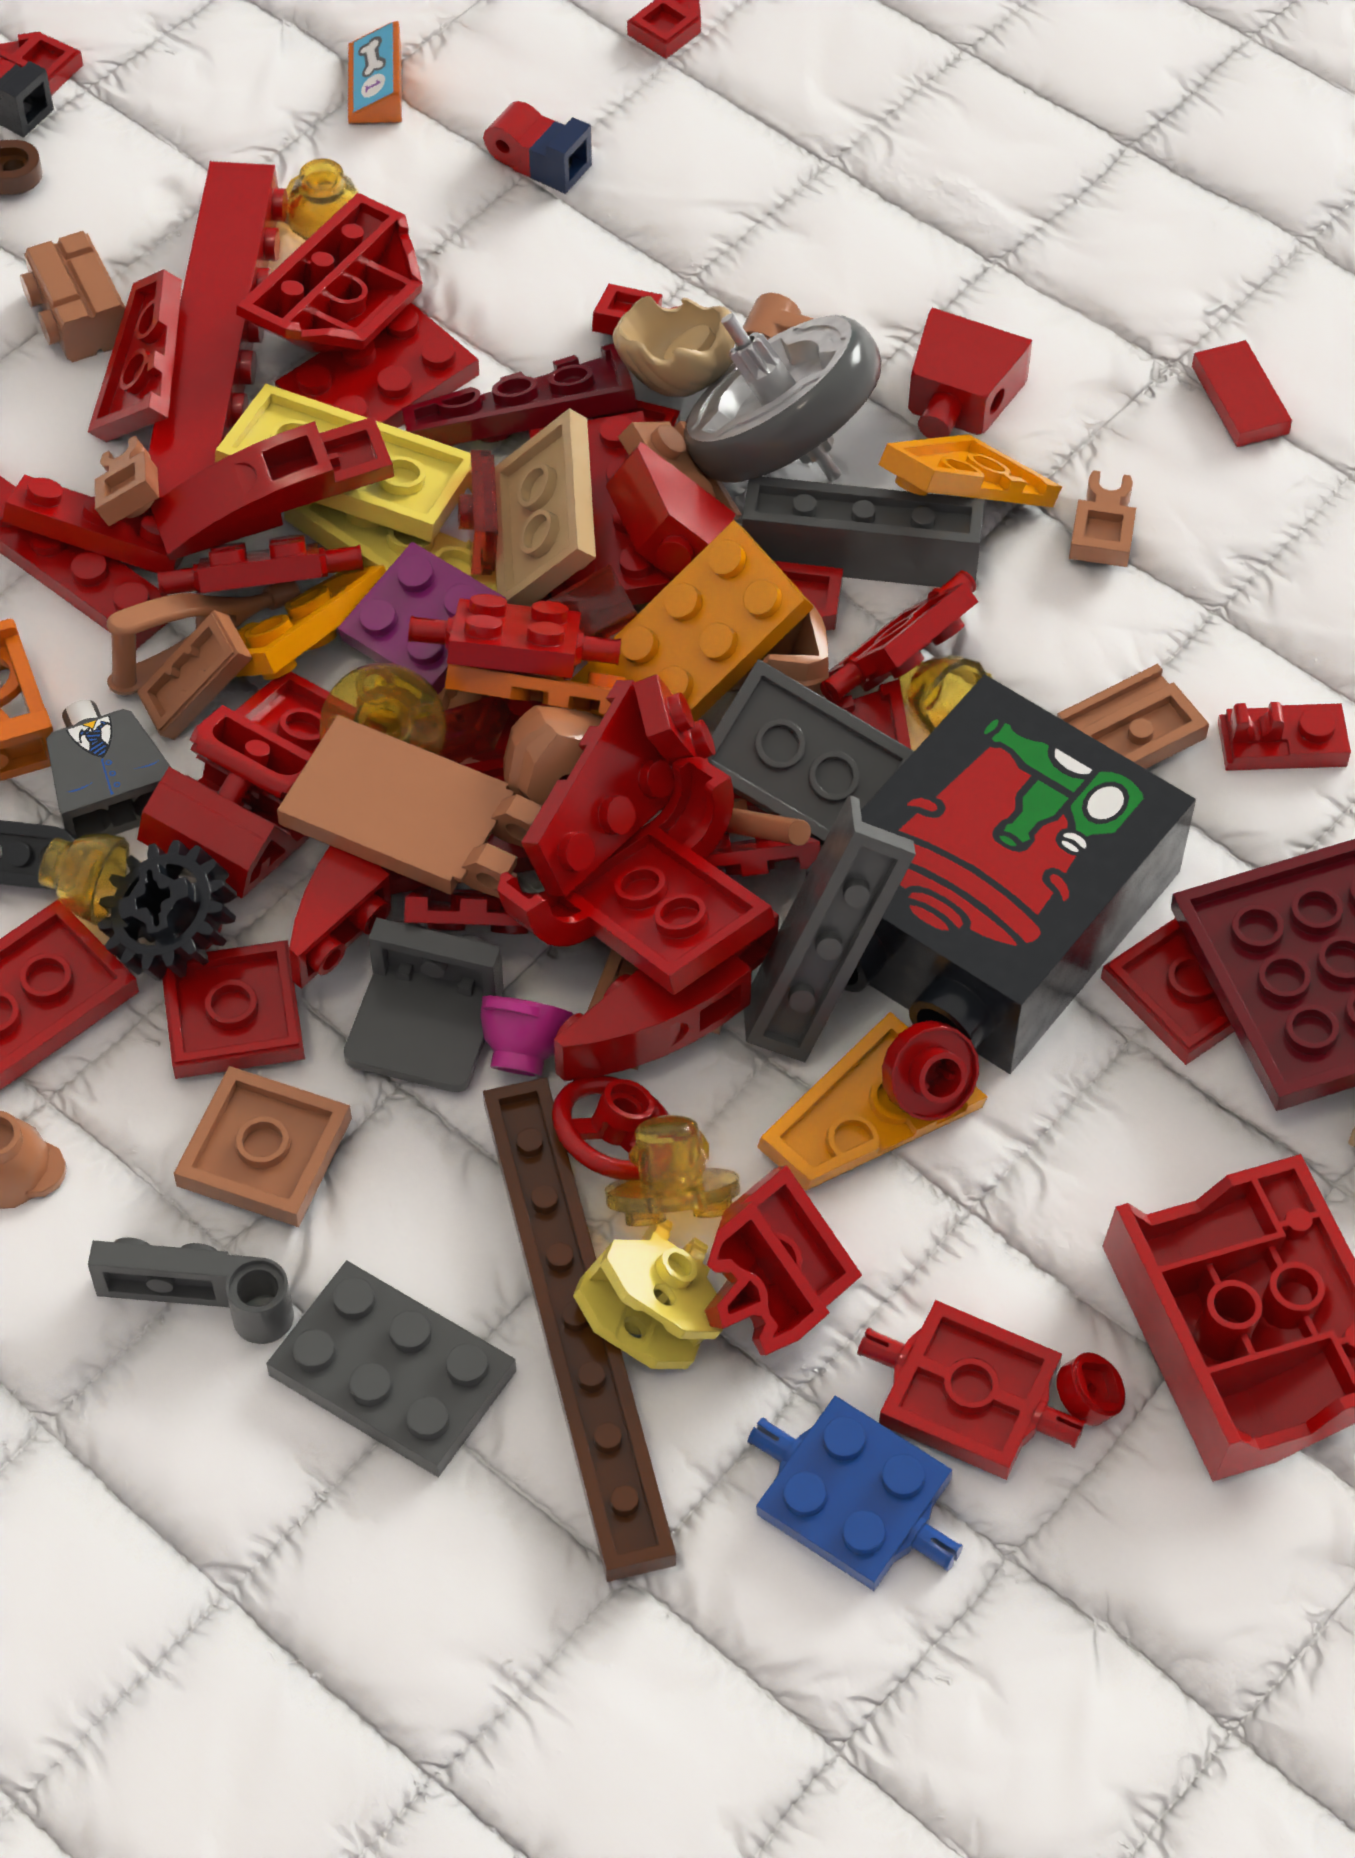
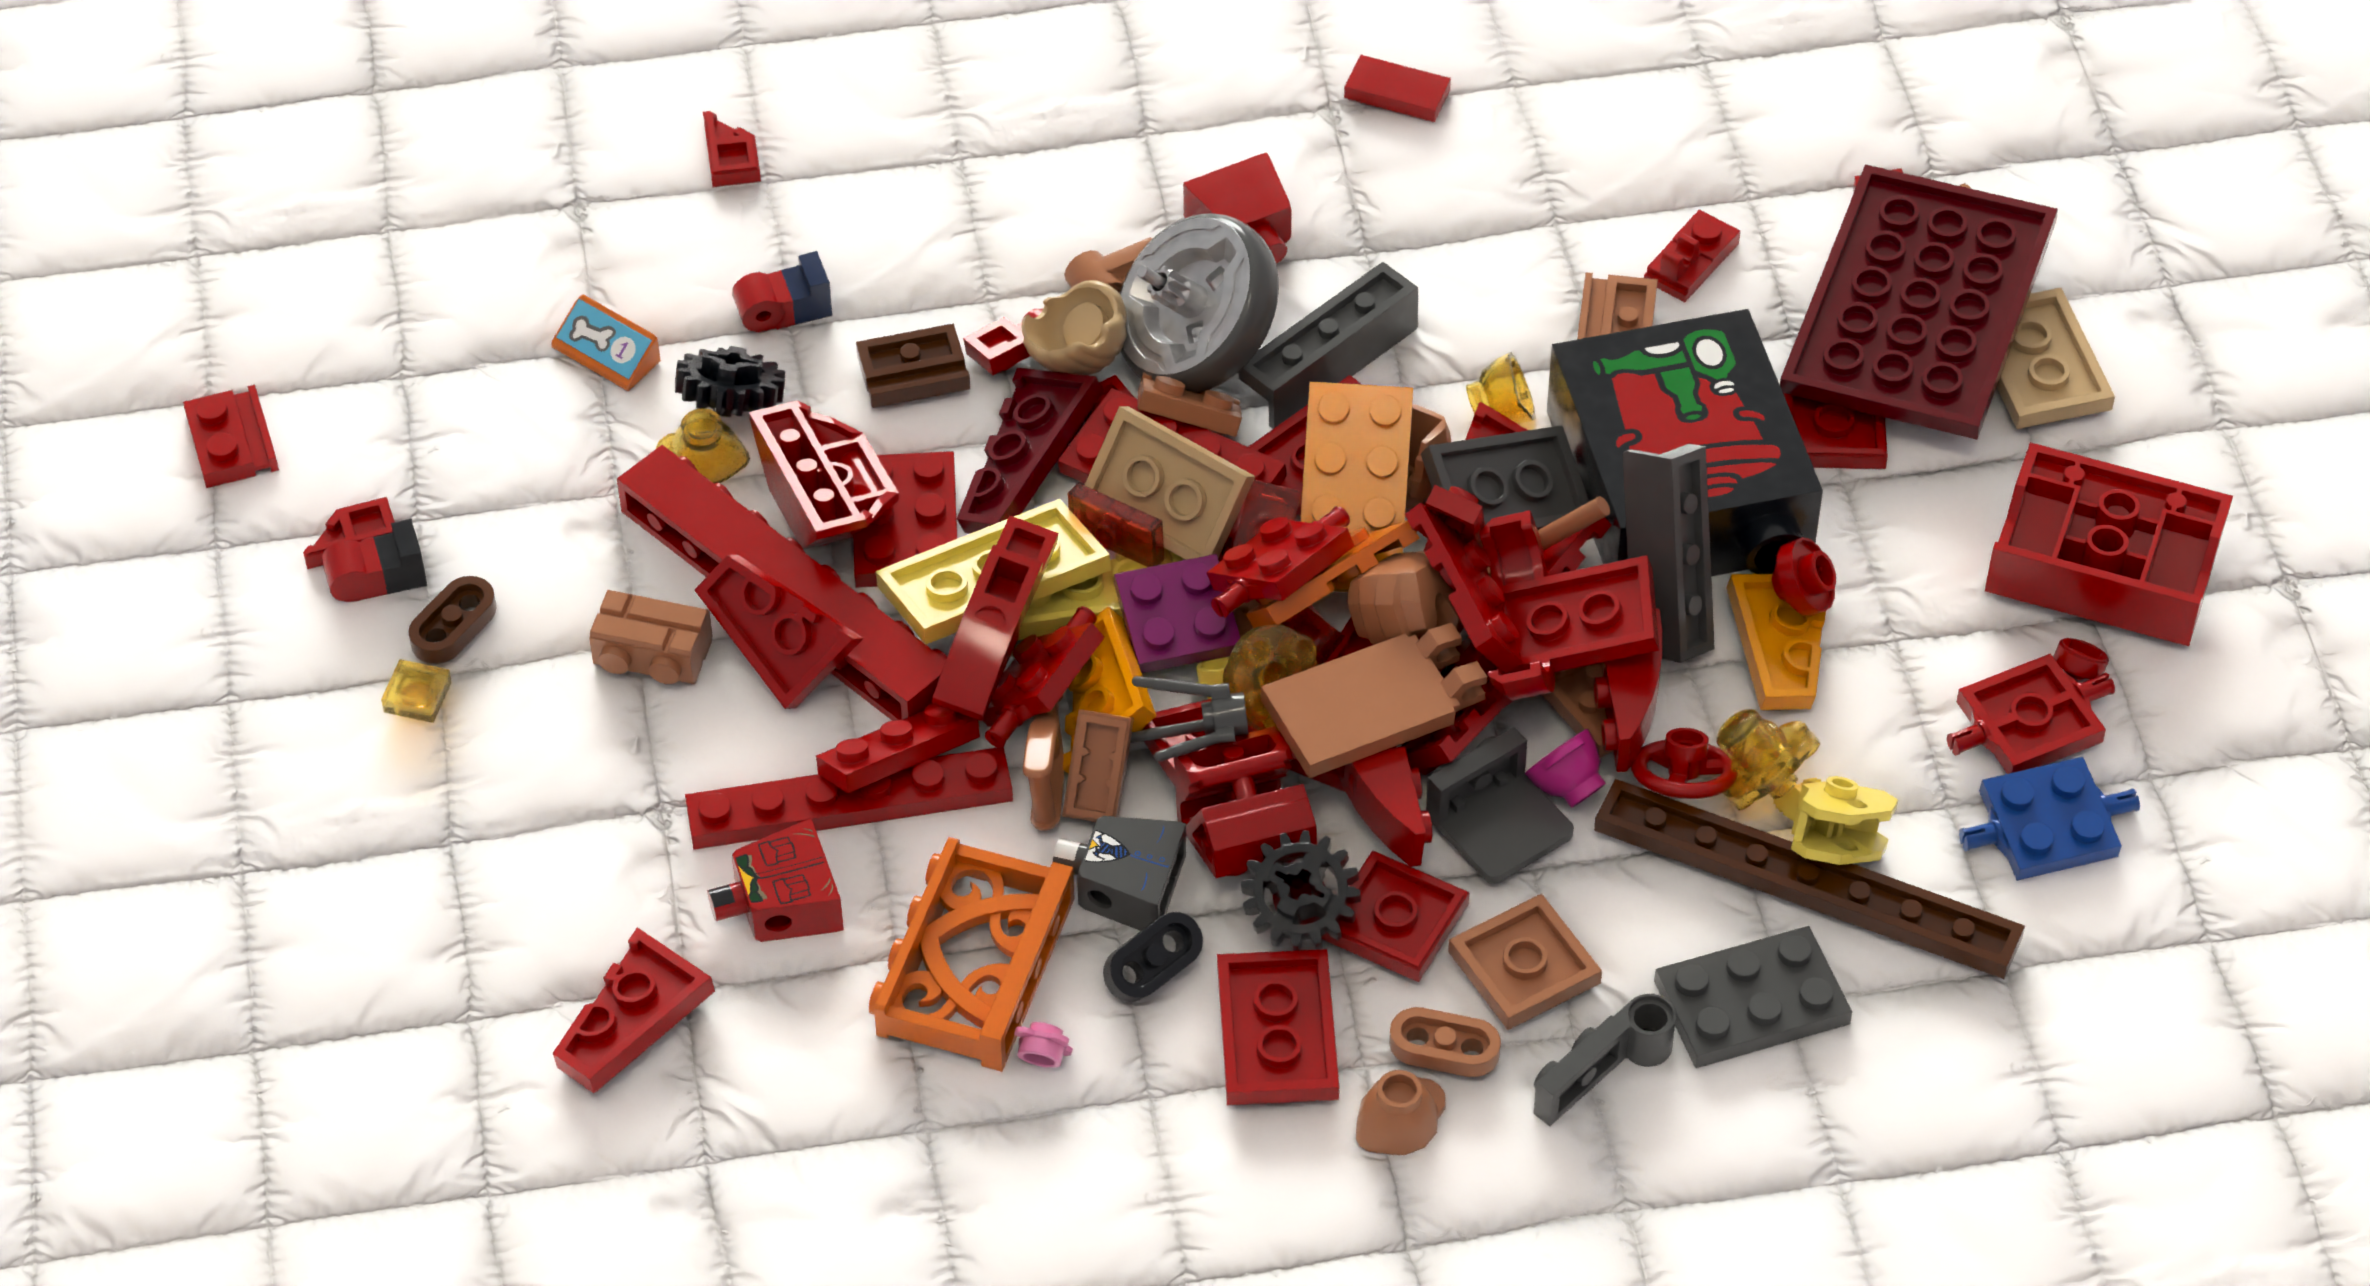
camera: 50 degrees left, 5 degrees down
(82, 871) = (1224, 919): clear yellow piece -> none
(114, 1145) = (1446, 1041): none -> nougat plate
(127, 485) = (903, 697): nougat plate -> none
(283, 708) = (1221, 720): none -> dark grey plant
(398, 167) = (729, 381): none -> black gear
(548, 272) = (912, 365): none -> reddish brown plate
(665, 510) = (1244, 422): red slope -> none
(777, 1263) = (1872, 743): red plate -> none
(898, 644) = (1452, 369): red plate -> none
(966, 469) = (1343, 257): light orange wing -> none
(1104, 524) = (1442, 227): nougat plate -> none

